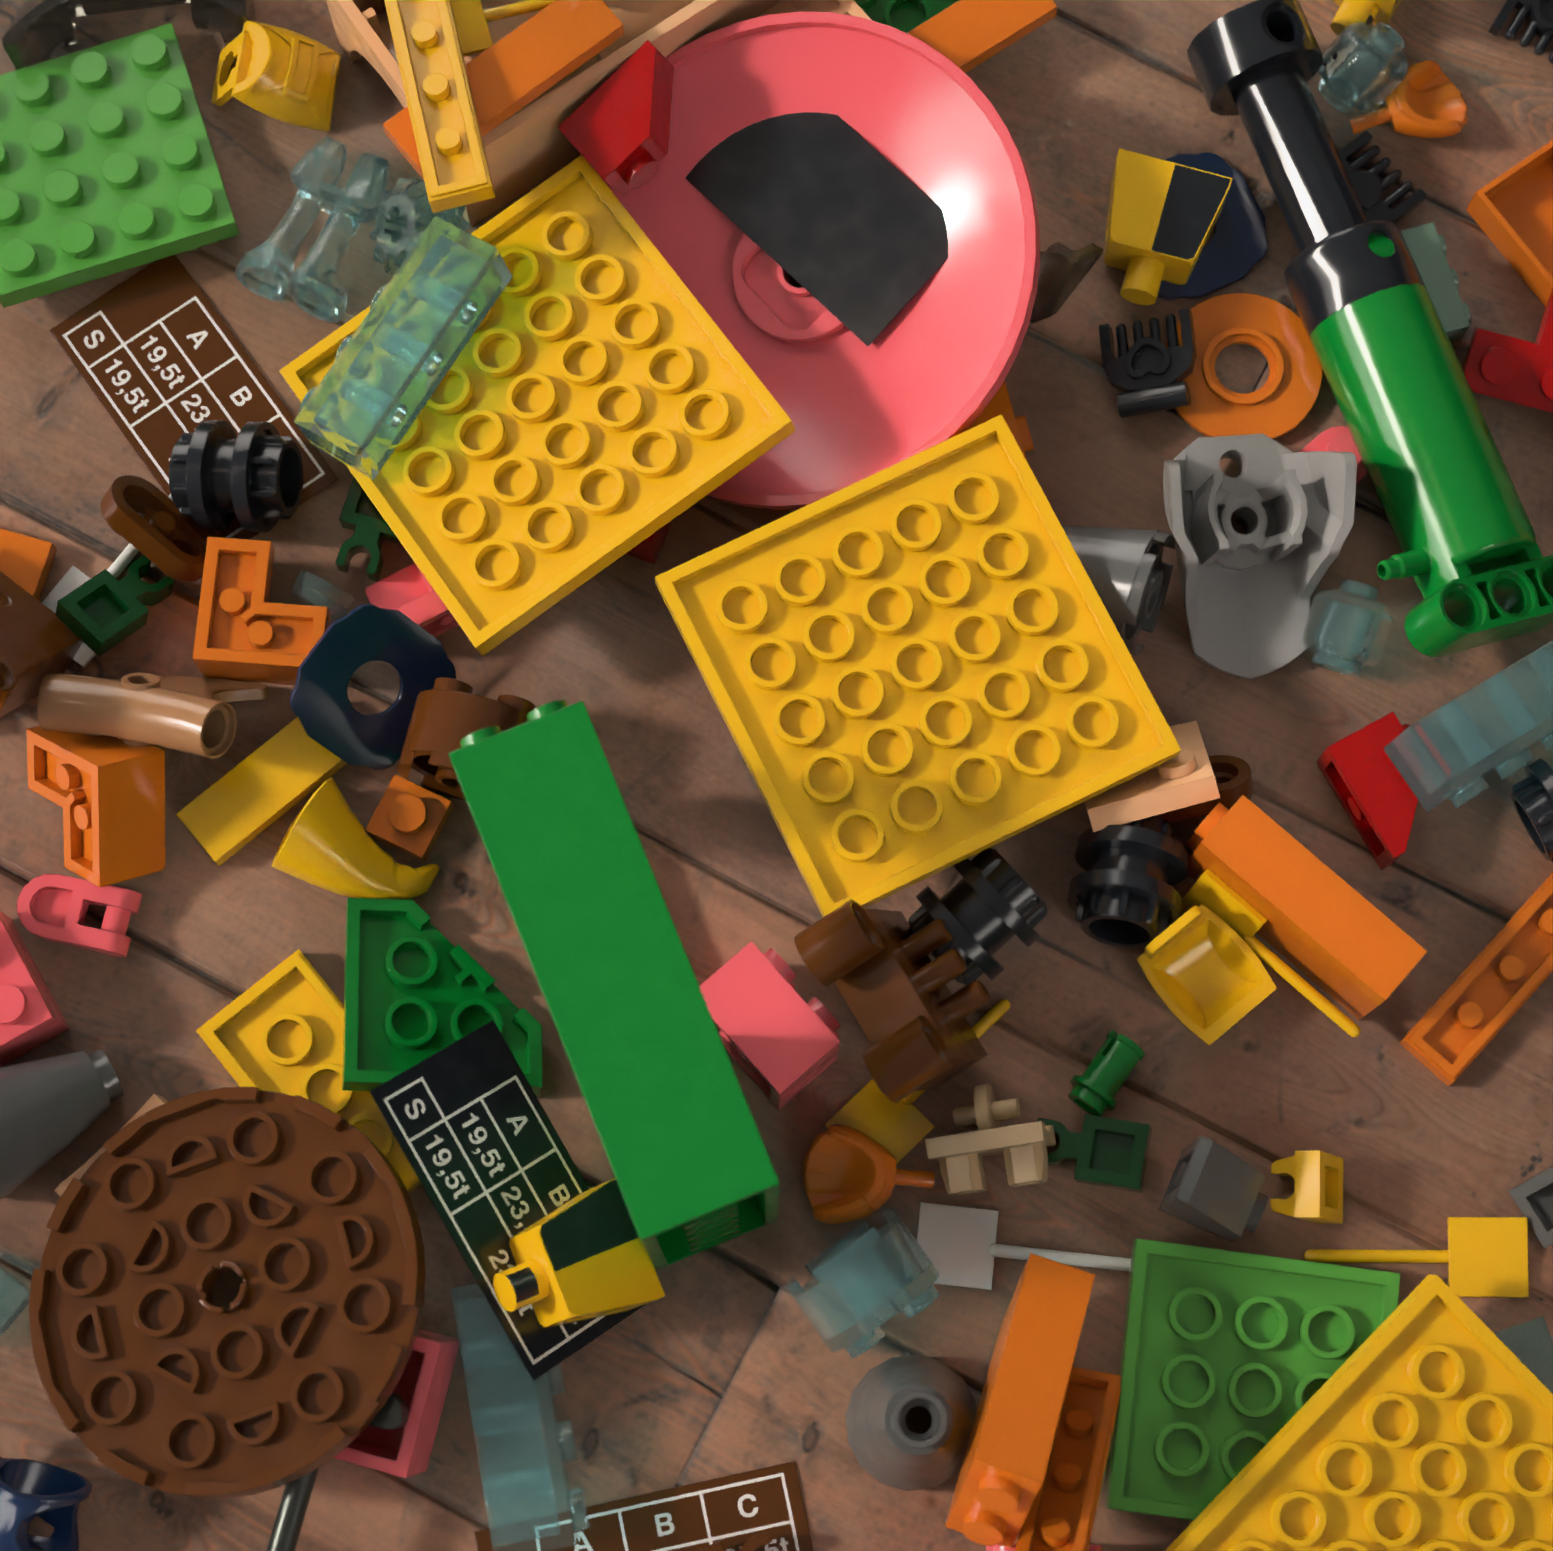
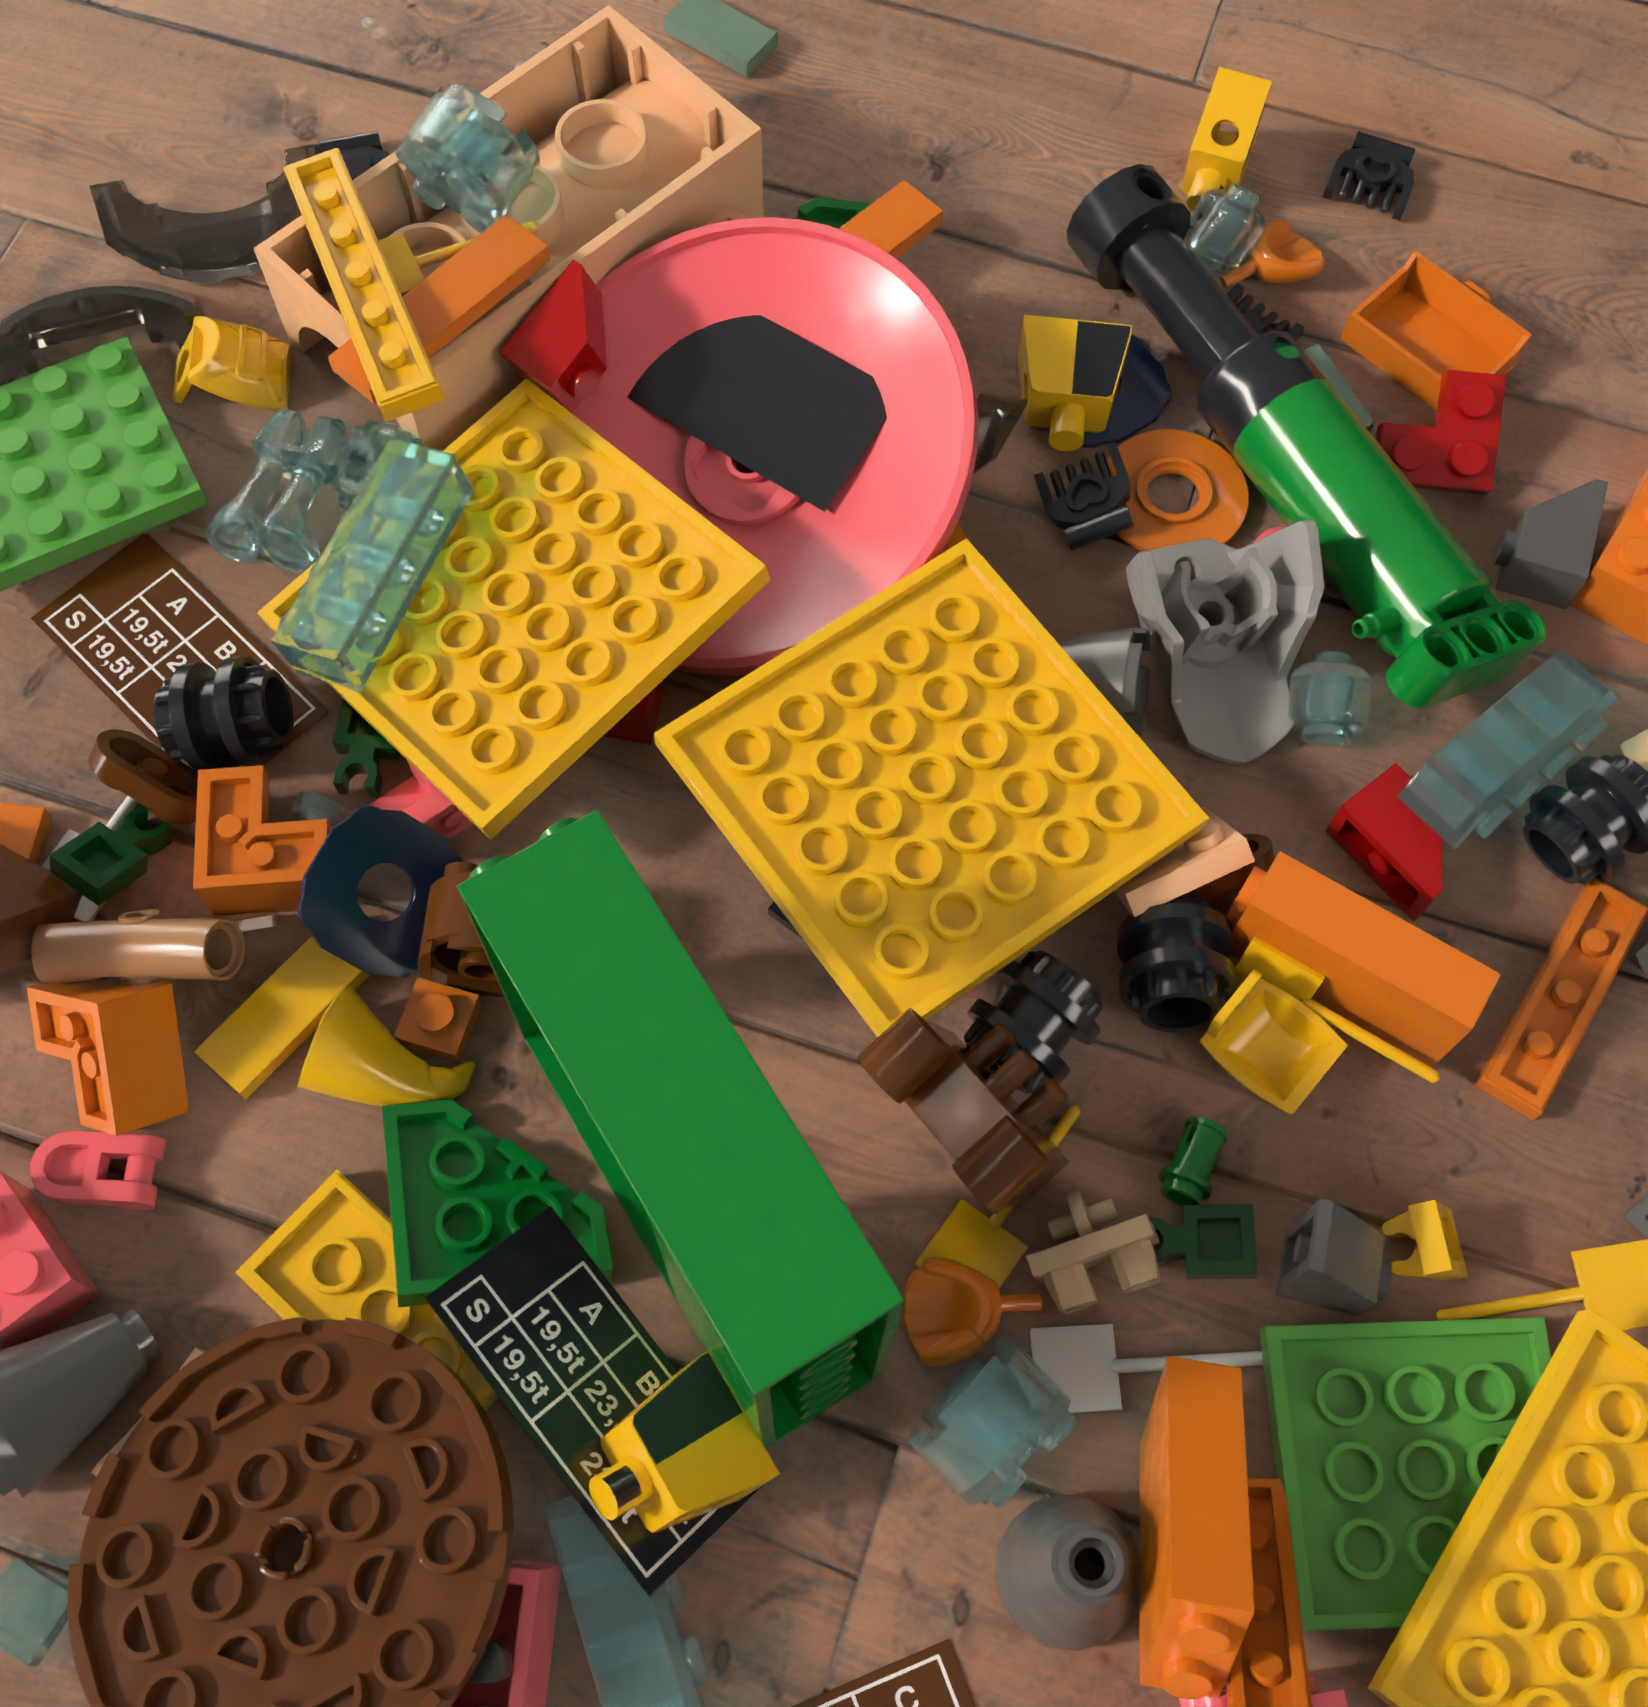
camera: 10 degrees left, 10 degrees down
(769, 1025) = (866, 1164): coral brick -> none

